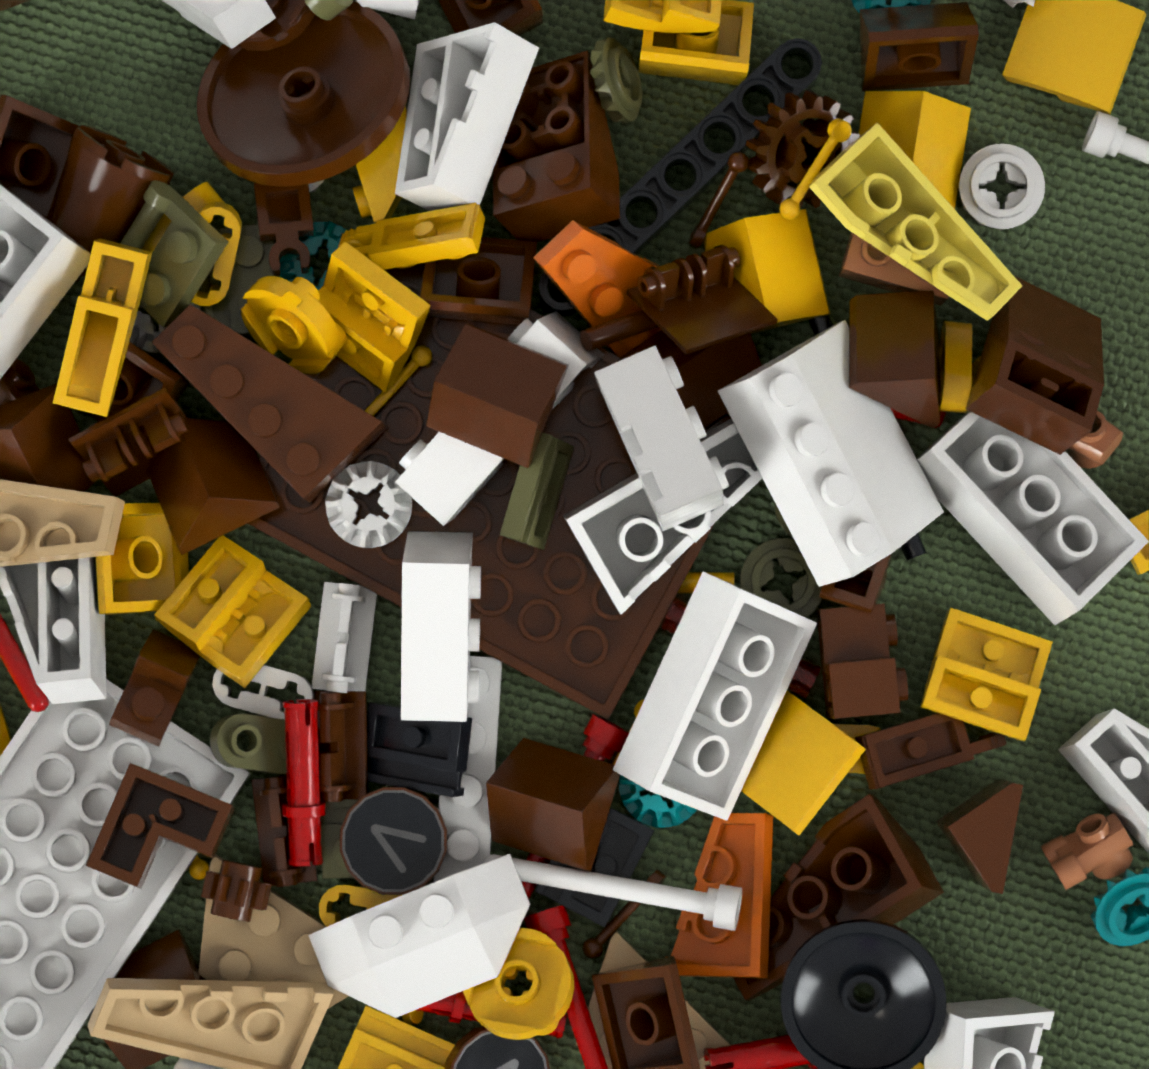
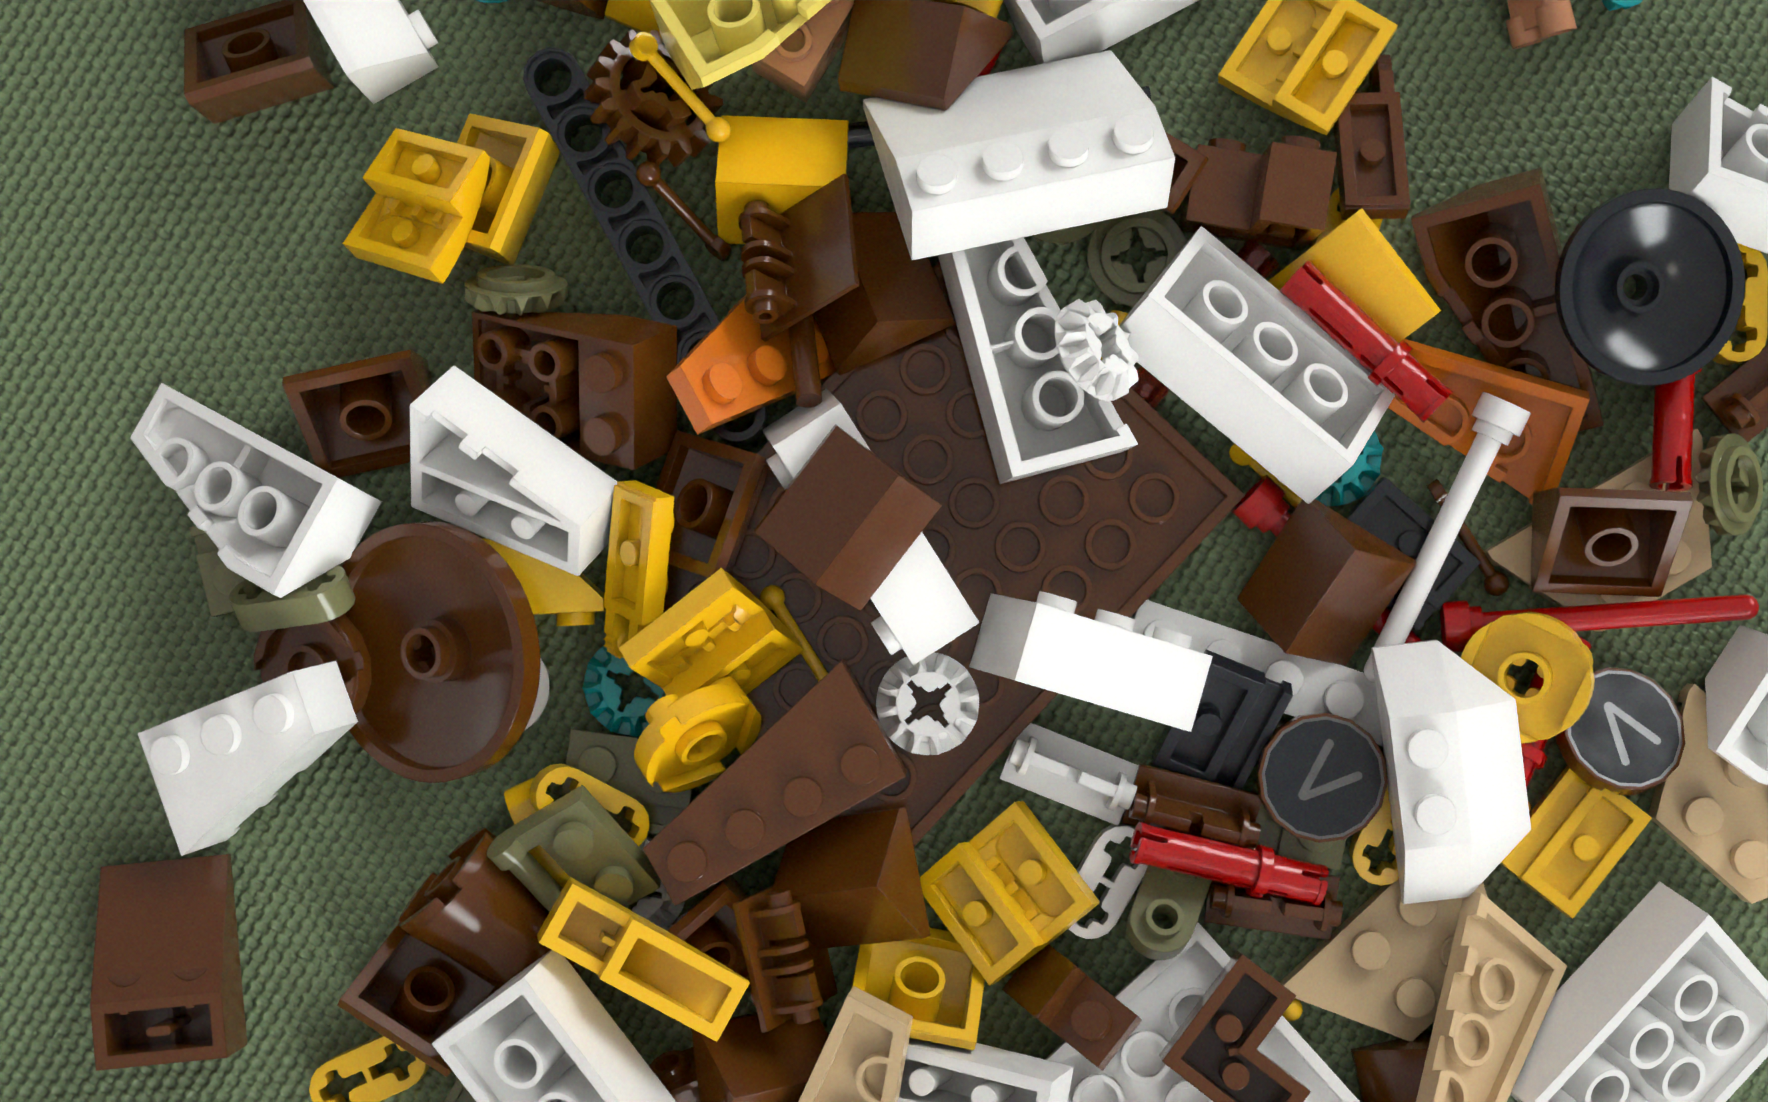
camera: 75 degrees left, 0 degrees up
(236, 890) = (1333, 974): reddish brown gear -> none
(284, 217) = (569, 712): reddish brown plate -> none
(537, 493) = (970, 506): olive plate -> none
(662, 437) = (949, 337): white wedge -> none
(680, 545) = (1086, 335): none -> white gear
(762, 772) = (1366, 341): none -> red pin
(984, 832) = (1487, 97): reddish brown slope -> none

